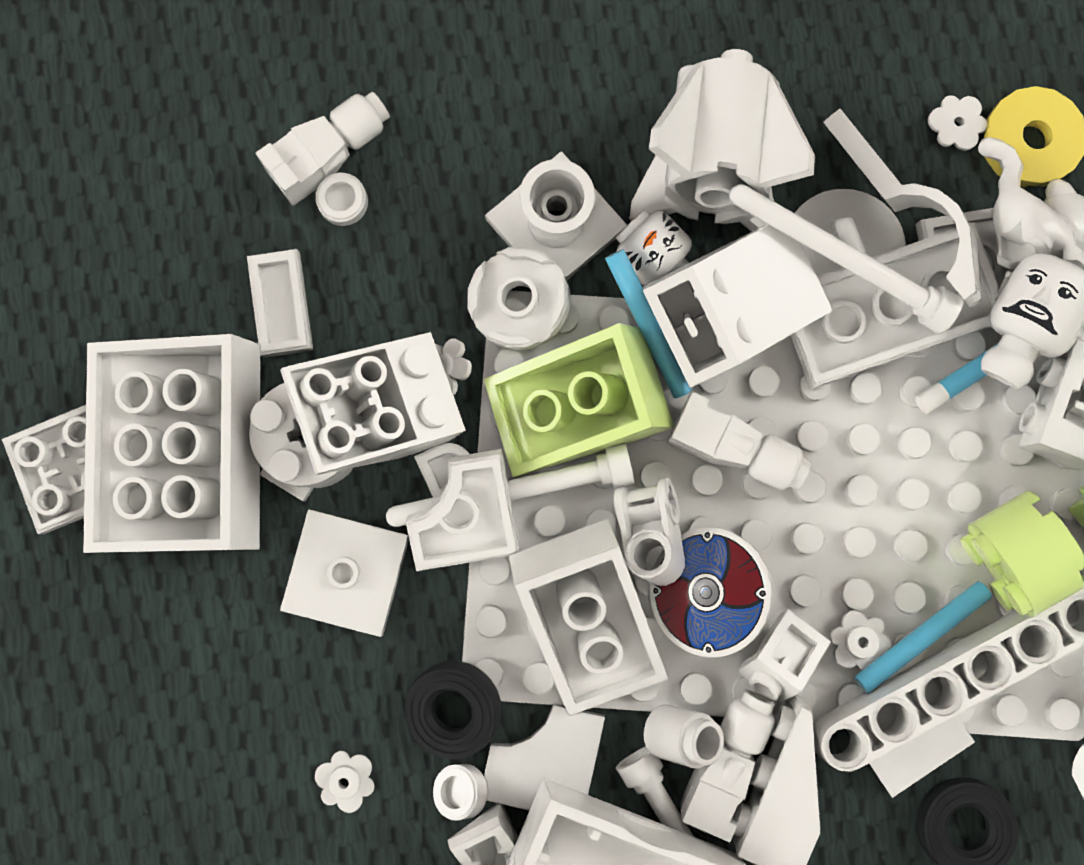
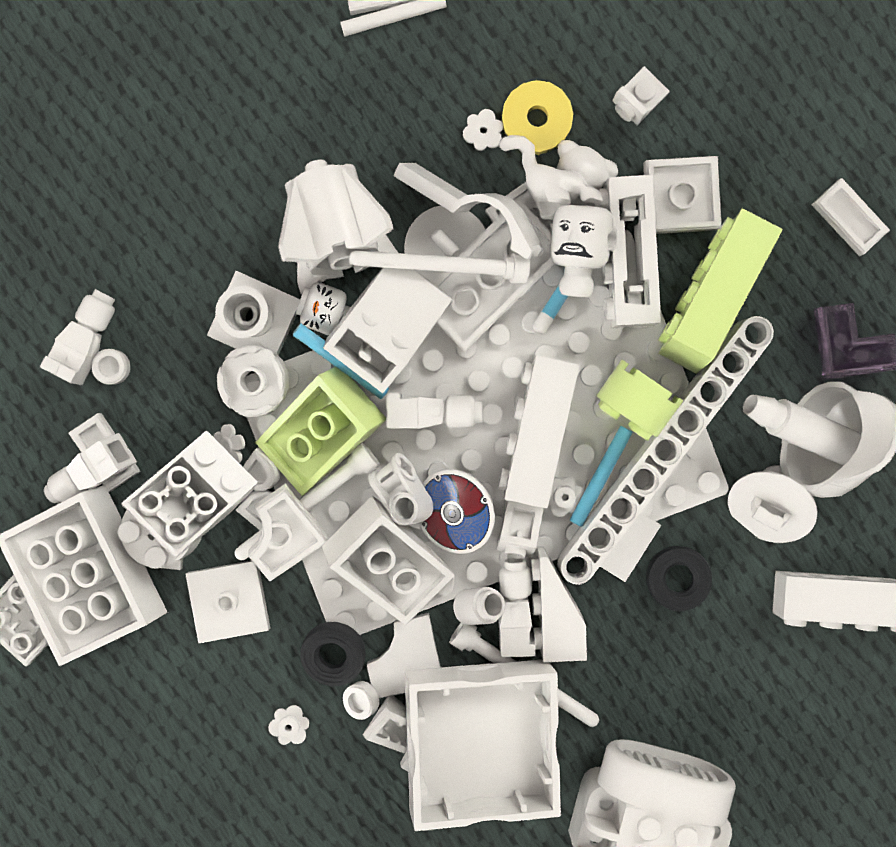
camera: 25 degrees left, 5 degrees up
(255, 312) = (90, 469): none -> white piece
(477, 419) = (262, 470): none -> white tile
(870, 536) = (539, 432): none -> white brick

